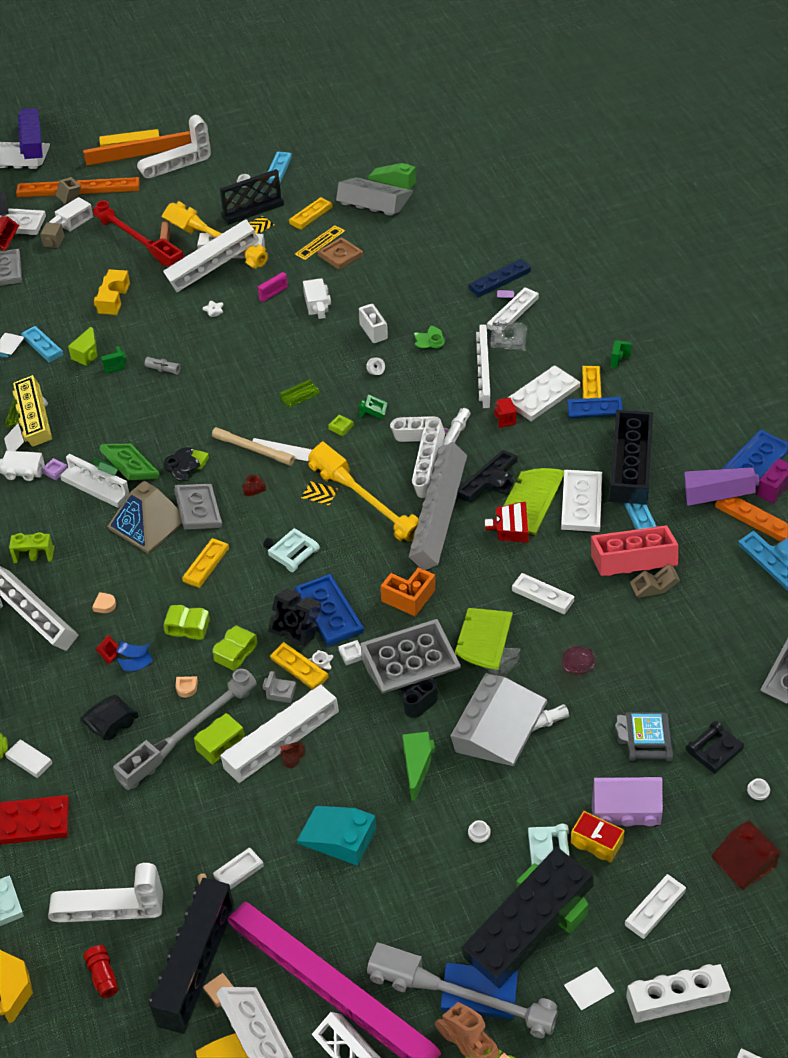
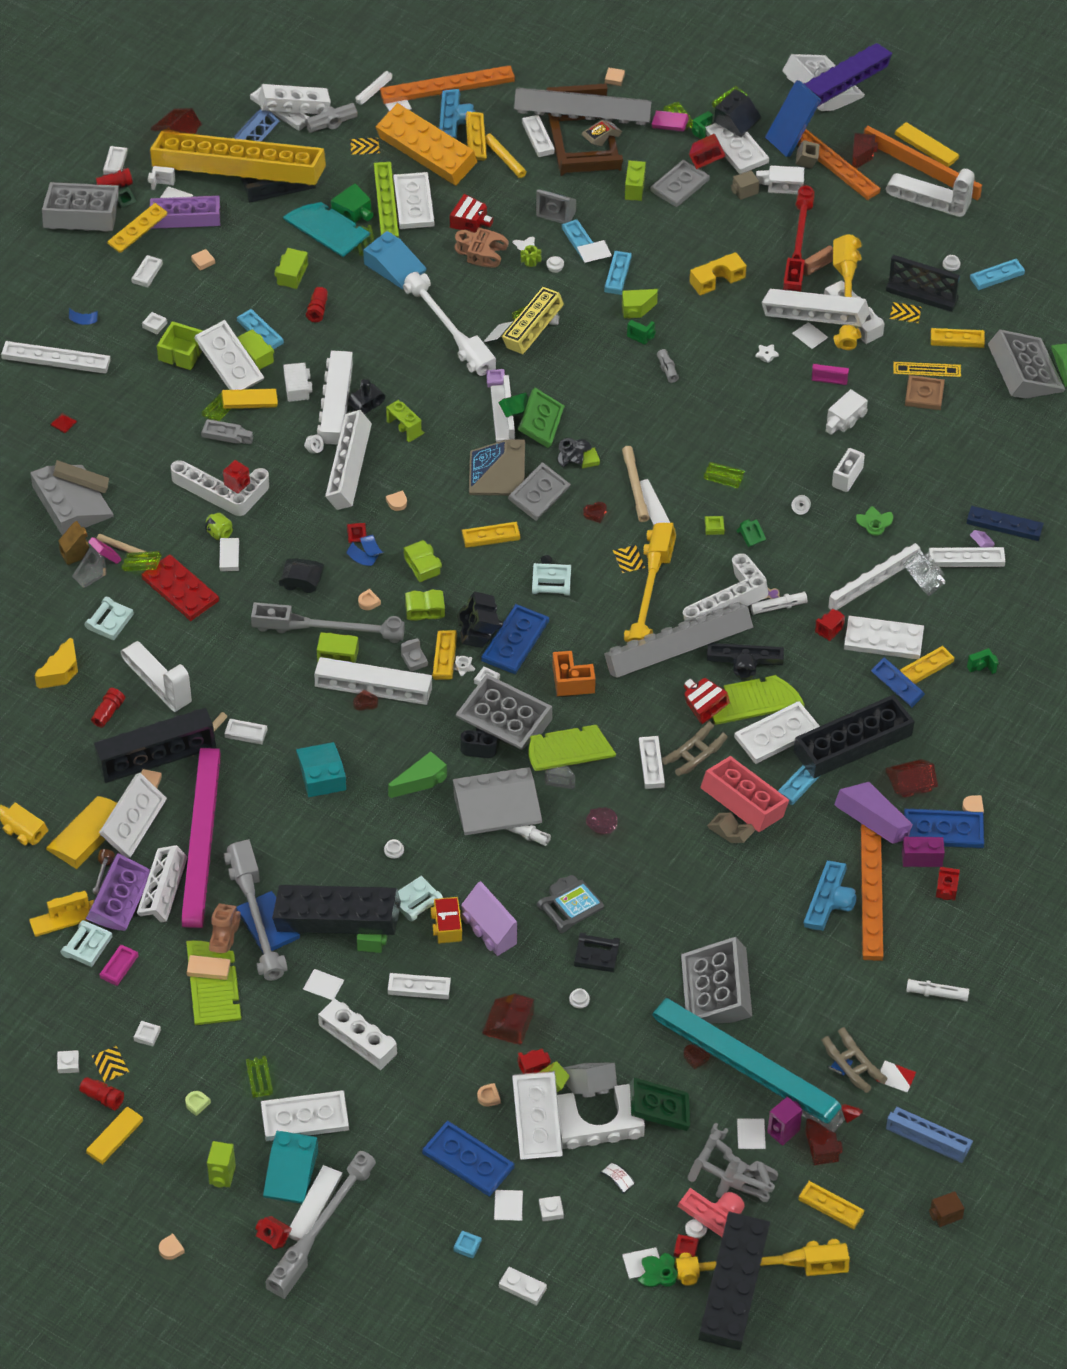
camera: 50 degrees right, 5 degrees up
(35, 173) = (793, 118): none -> blue tile
(95, 165) = (863, 149): none -> clear red slope
(222, 280) = (810, 335): none -> white sticker
(560, 552) = (697, 741): none -> dark tan piece
(695, 447) = (912, 777): none -> clear red slope
(748, 431) = (973, 804): none -> light nougat tile

